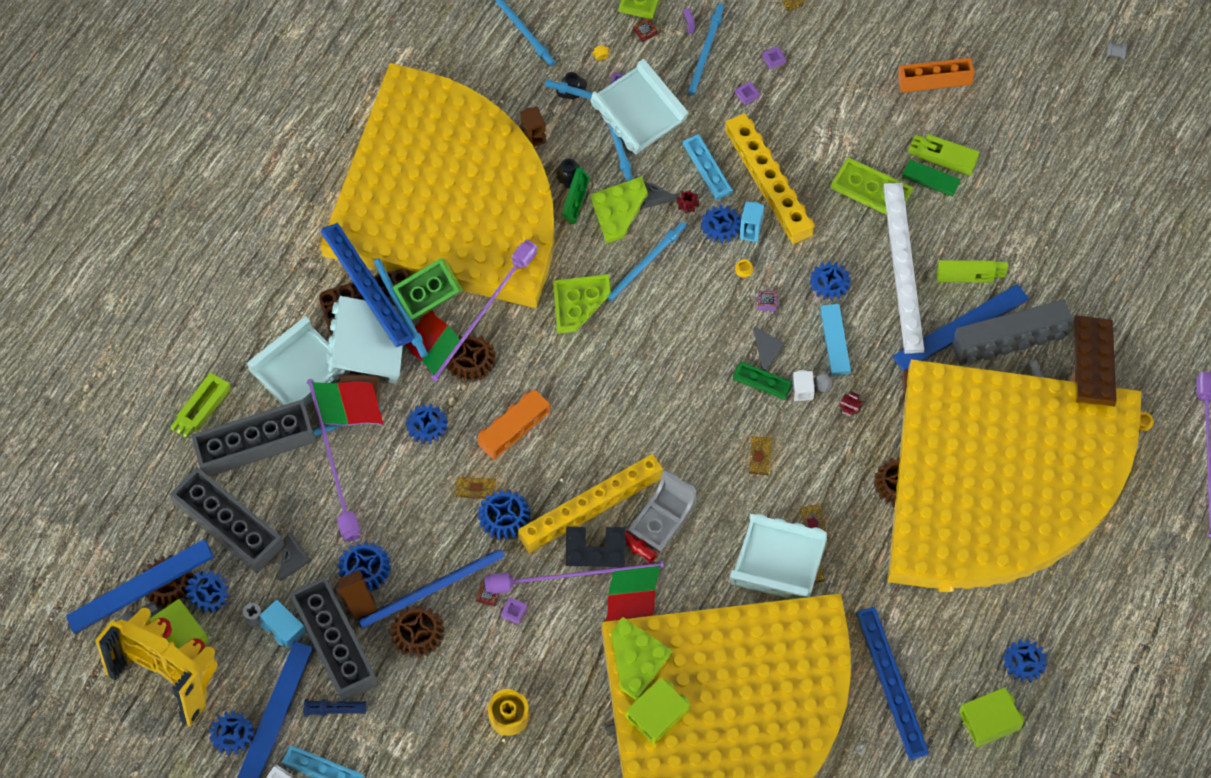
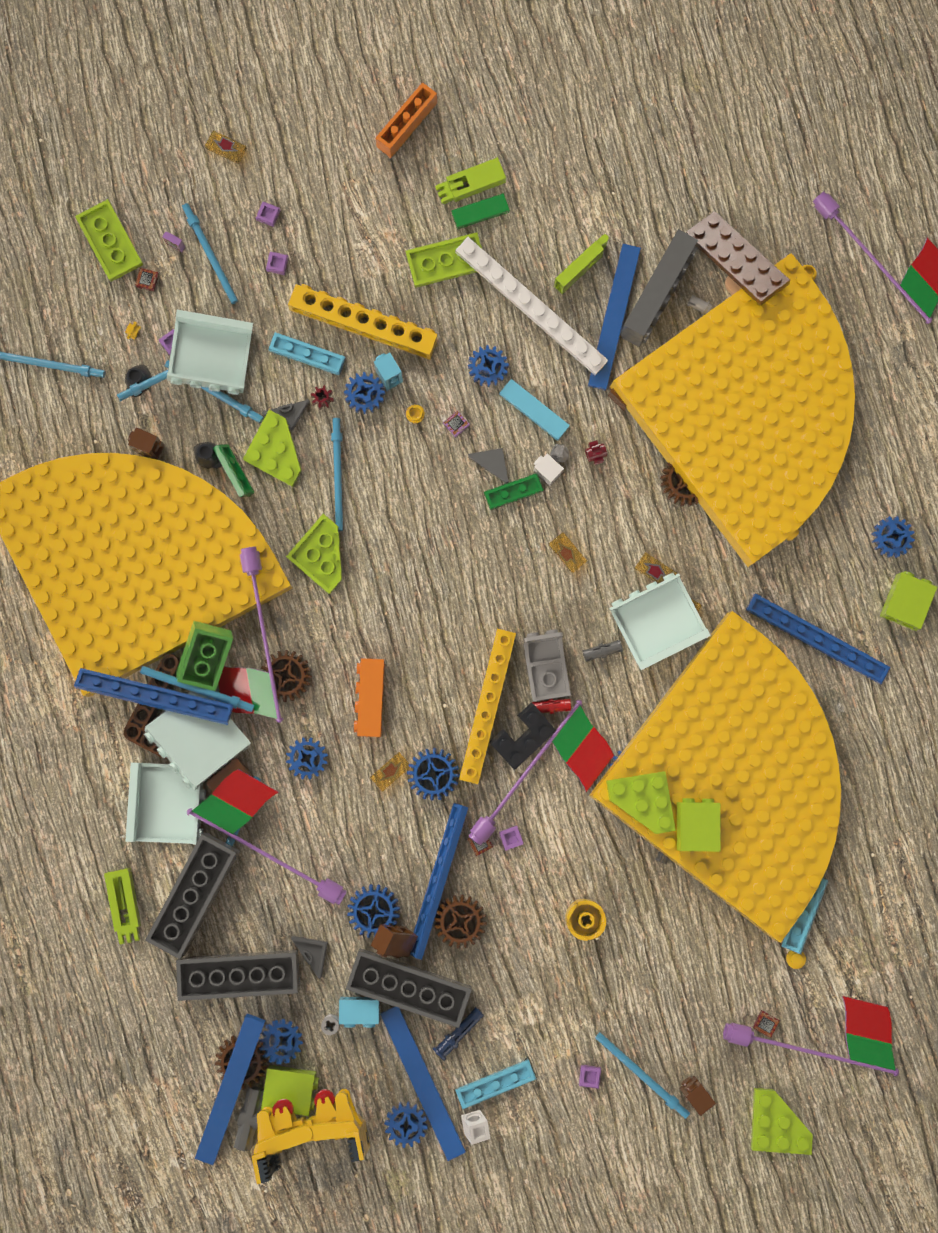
camera: 50 degrees left, 20 degrees up
(716, 543) = (602, 650): none -> dark grey pin

